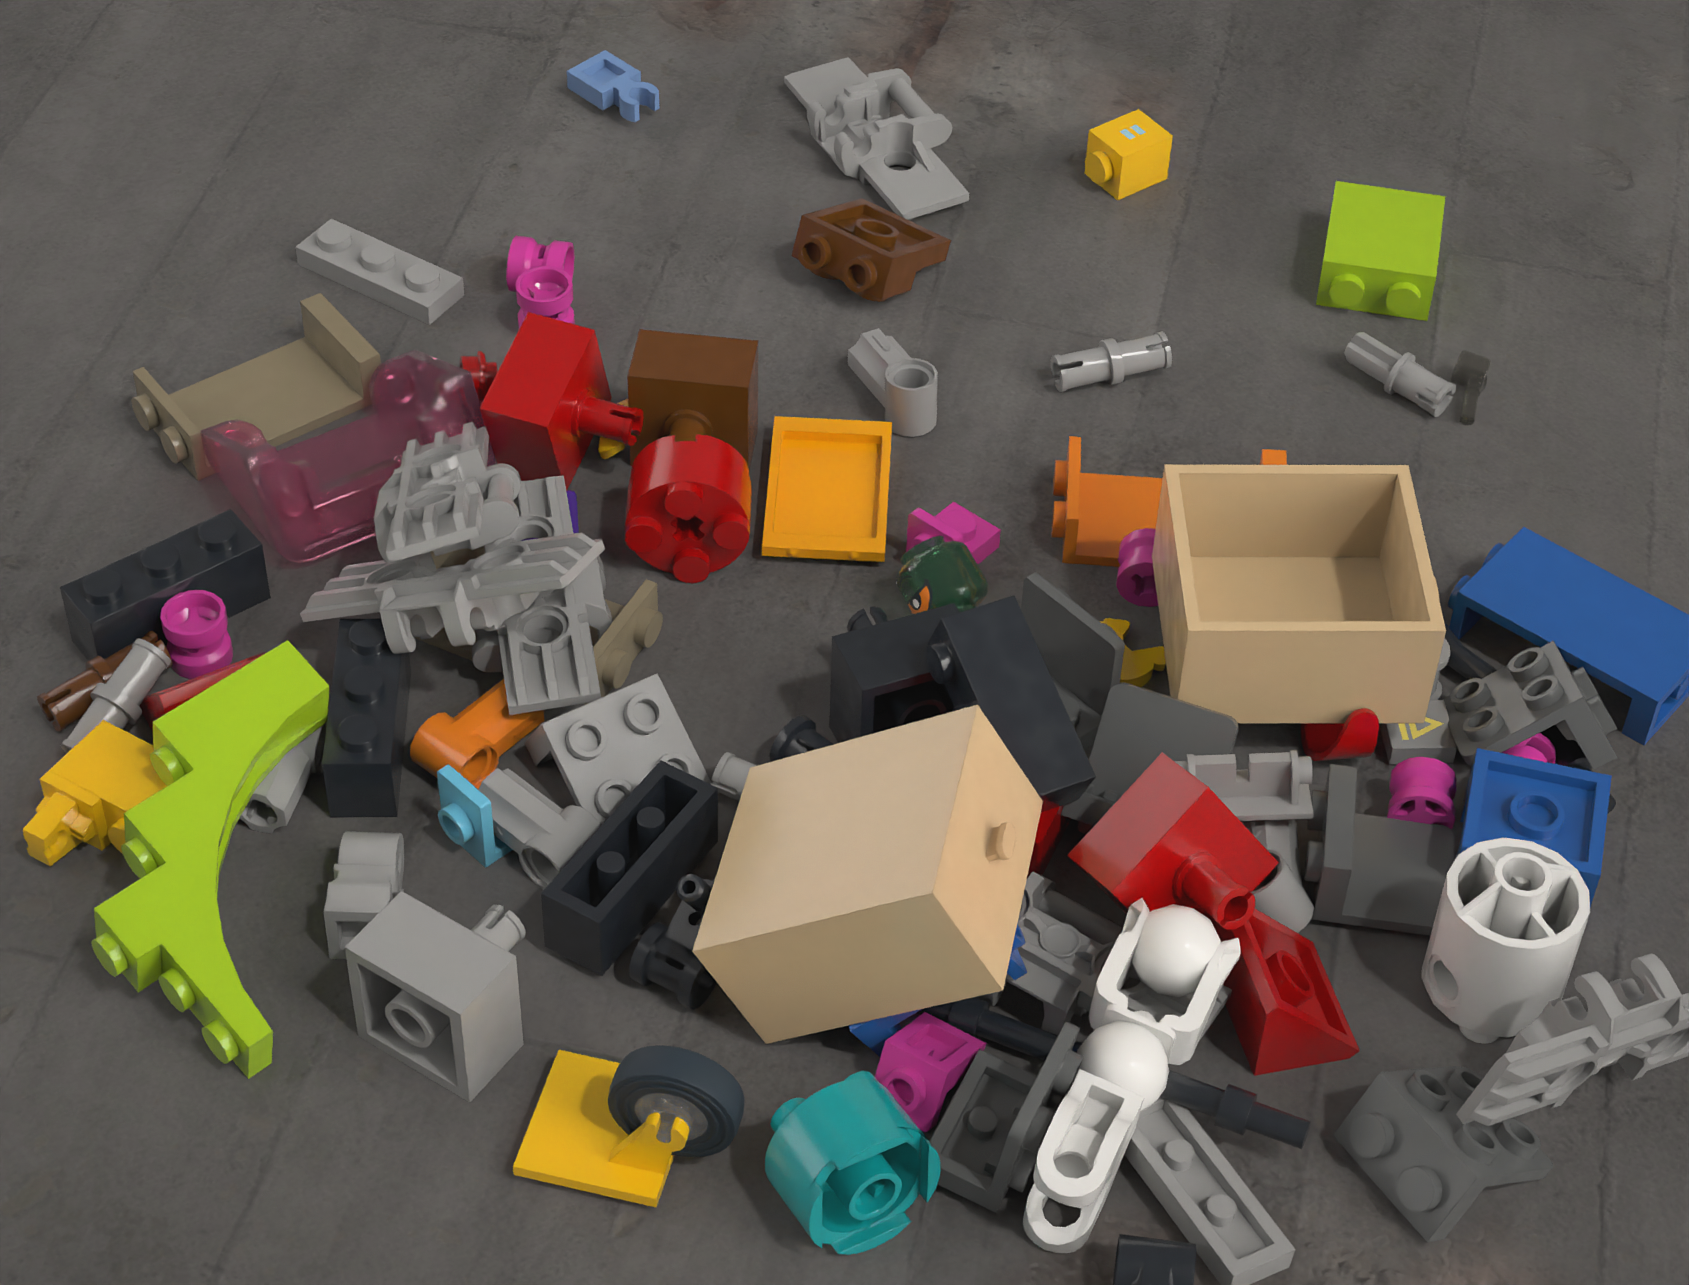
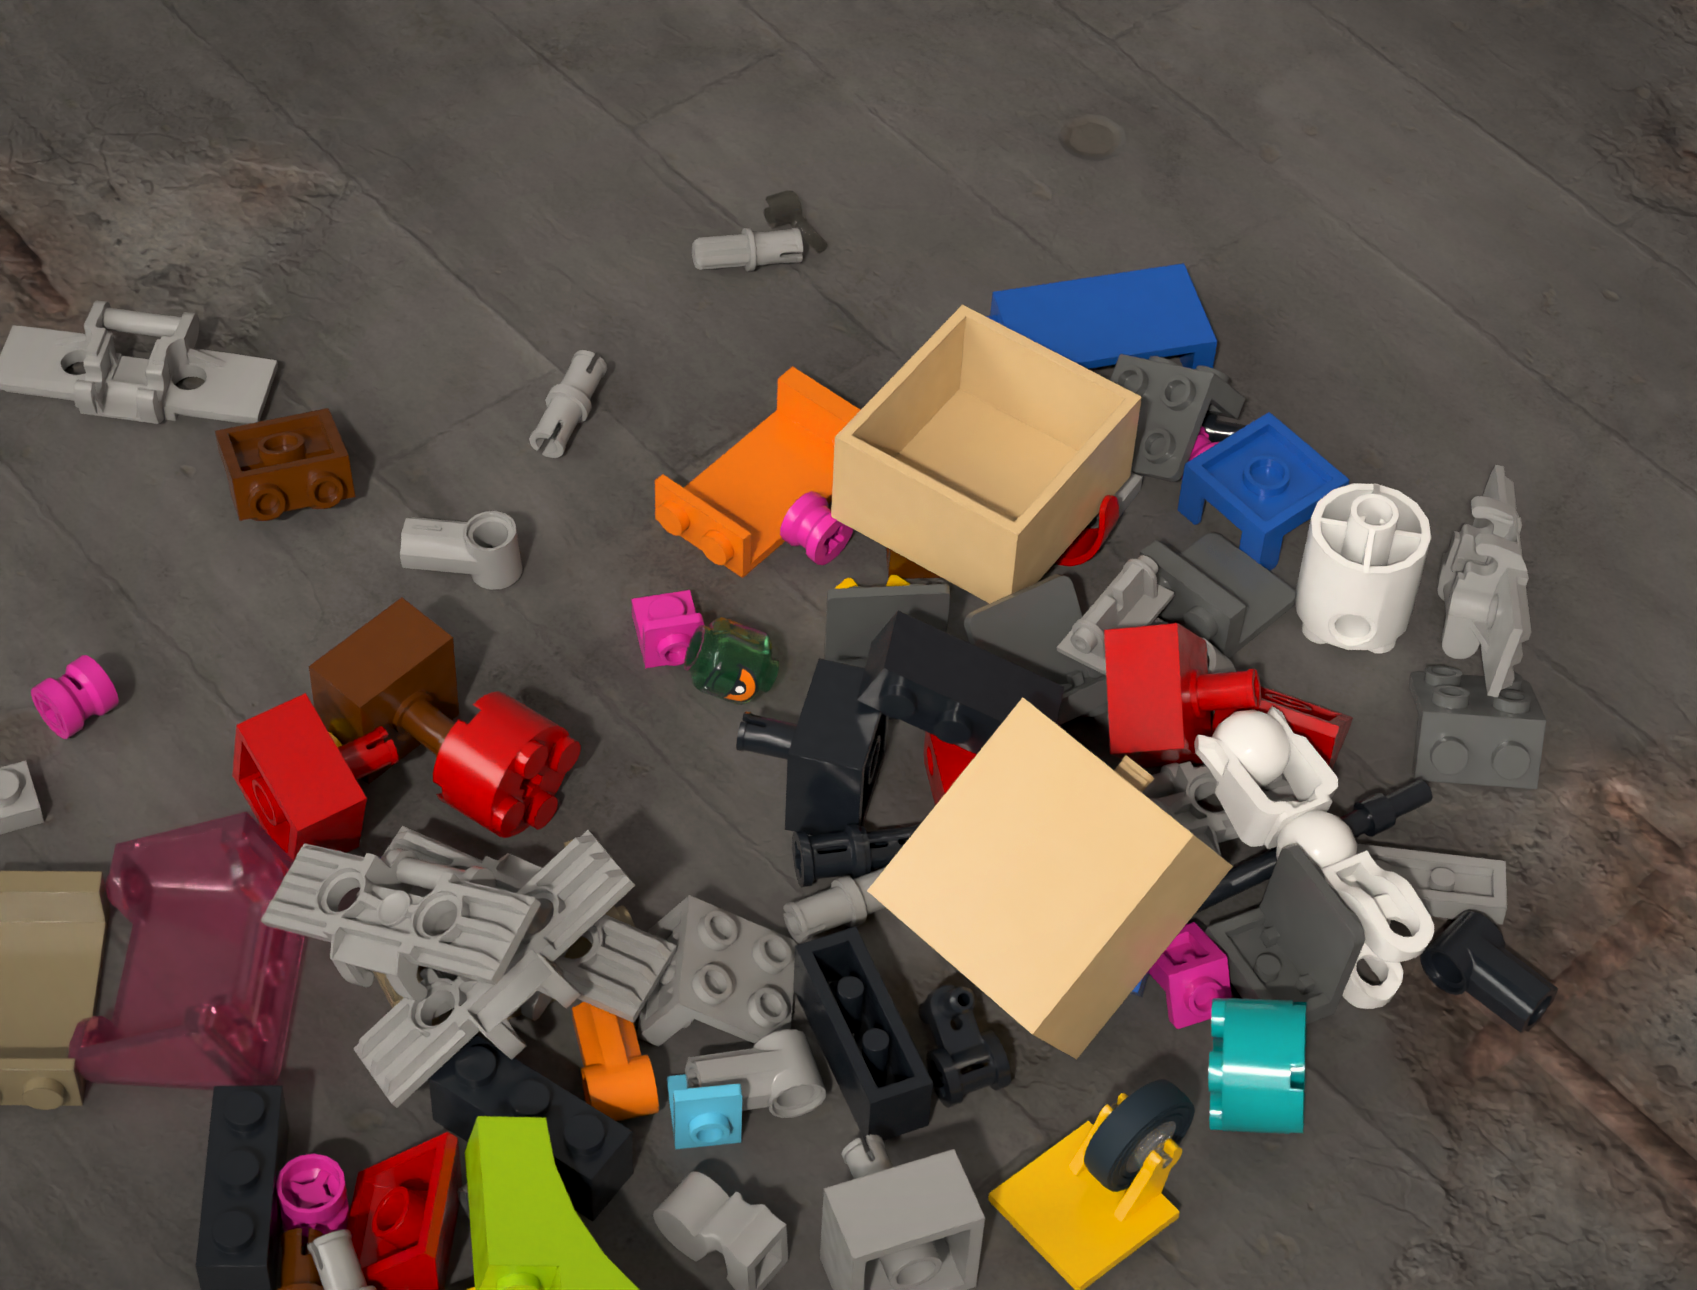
camera: 55 degrees left, 5 degrees up
(481, 371) = (168, 815): red plate -> none
(546, 293) = (131, 722): dark pink wheel -> none
(828, 489) = (540, 661): light orange piece -> none
(1128, 154) = (341, 233): yellow brick -> none
(1381, 251) = (610, 166): lime brick -> none
(1423, 792) = (1174, 523): dark pink wheel -> none

